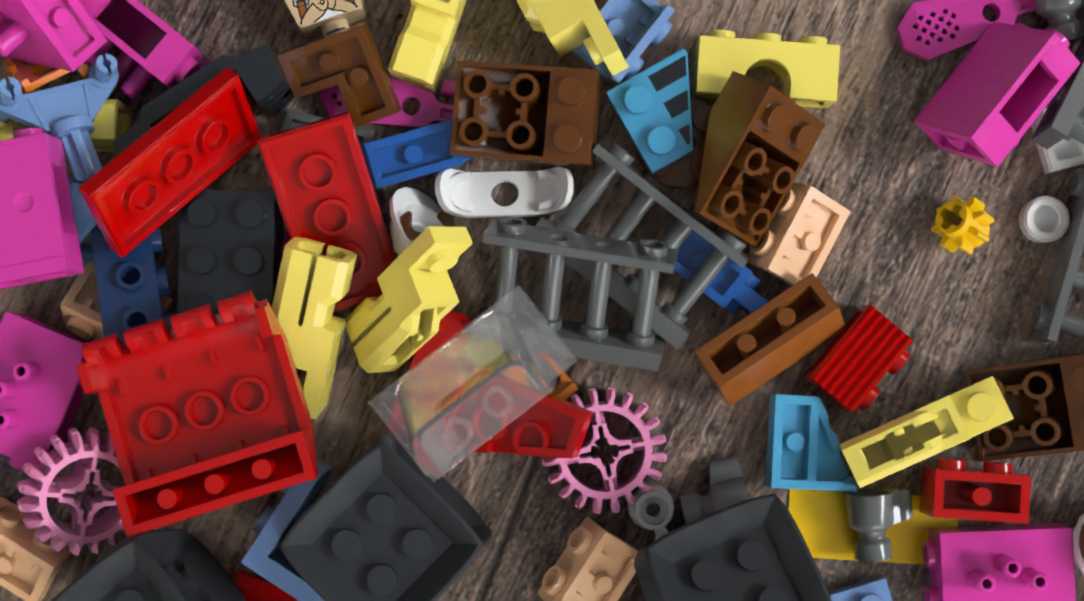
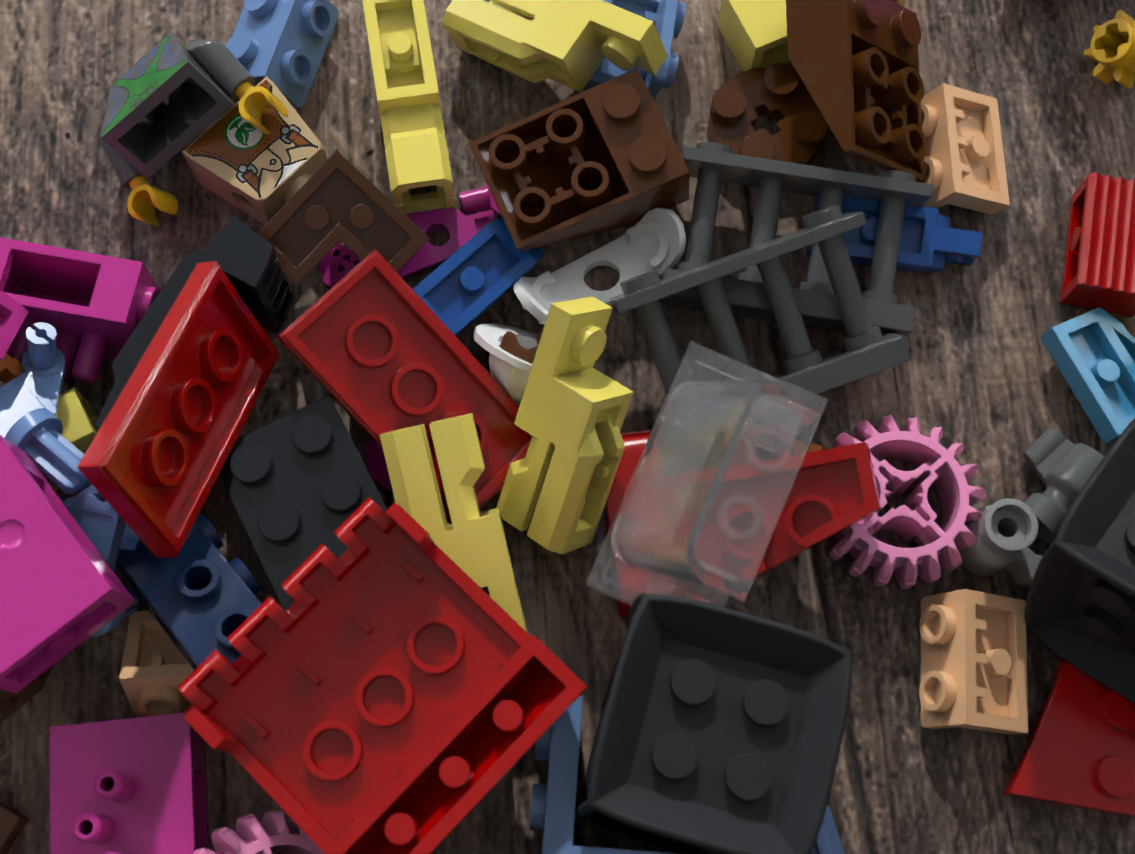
camera: 30 degrees left, 15 degrees down
(657, 111) = (724, 94): dark azure wing -> none
(771, 339) = (1007, 269): dark orange brick -> none

